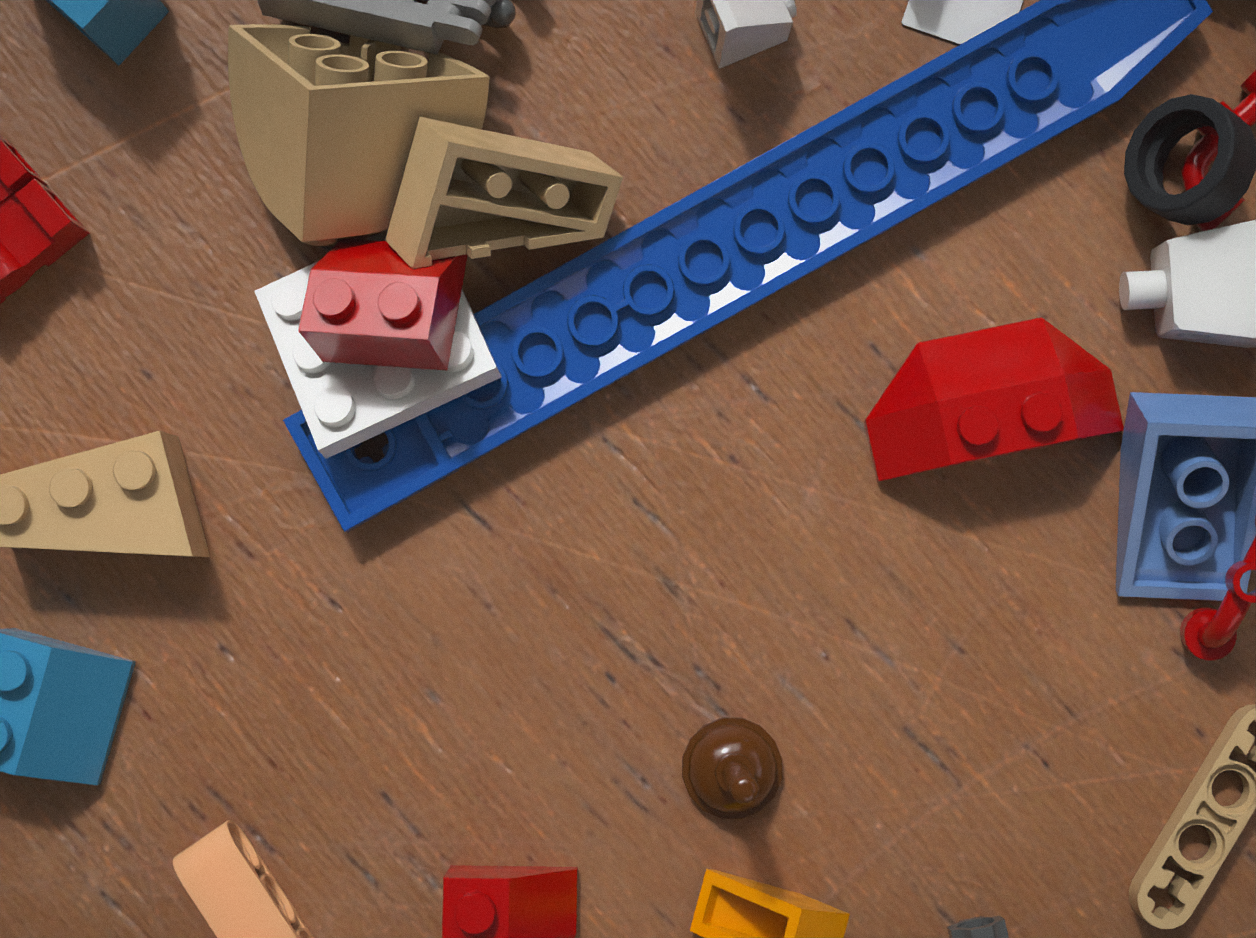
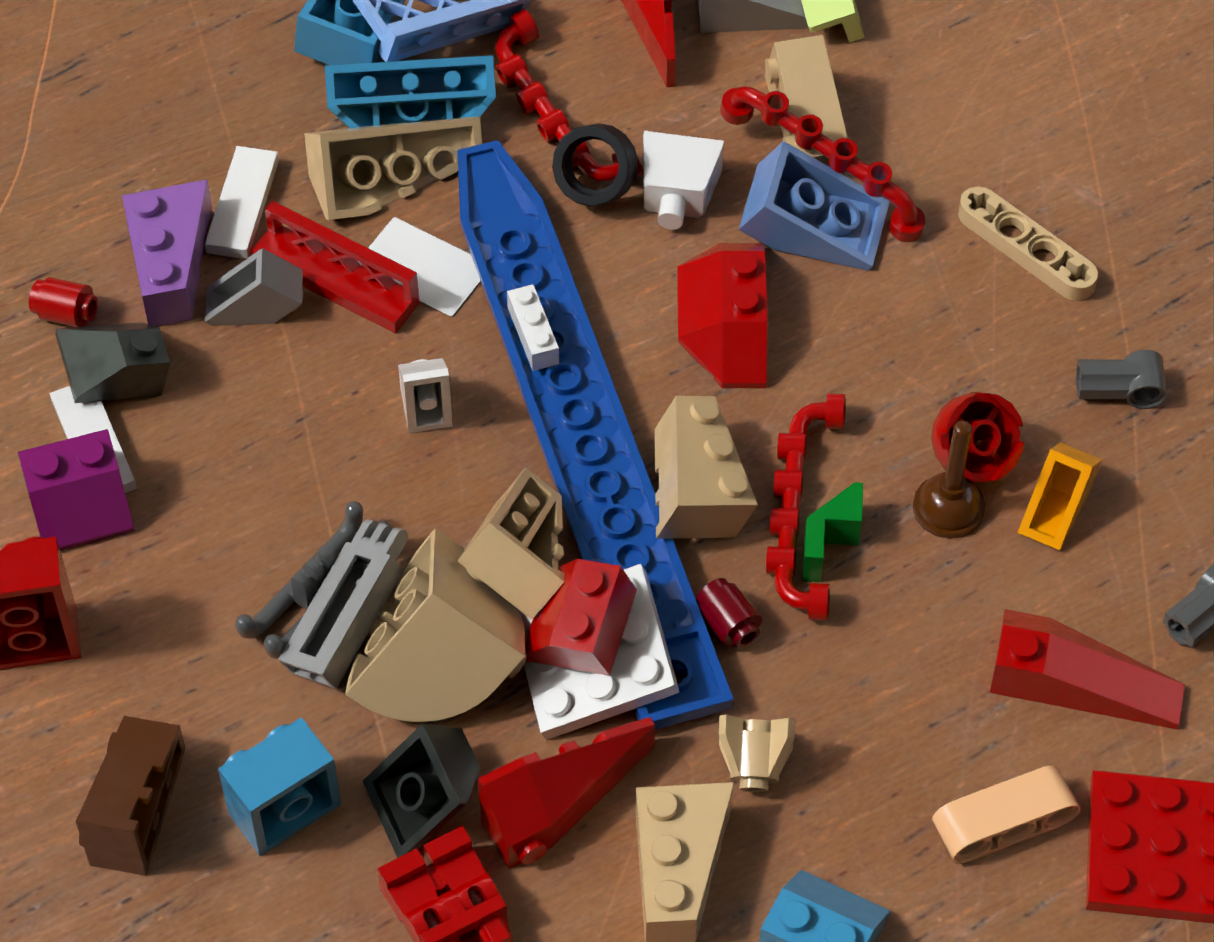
camera: 75 degrees left, 30 degrees down
(127, 306) = (538, 800): none -> red wedge
(137, 166) = (422, 784): none -> pearl dark grey slope
(273, 573) = (755, 749): none -> tan brick
(479, 501) = (729, 613): none -> dark red brick
(651, 550) = (786, 520): none -> red bar
(661, 625) = (833, 523): none -> green slope
(686, 414) = (700, 473): none -> tan wedge
(824, 795) = (994, 436): none -> red cylinder
(876, 135) = (533, 327): none -> white piece

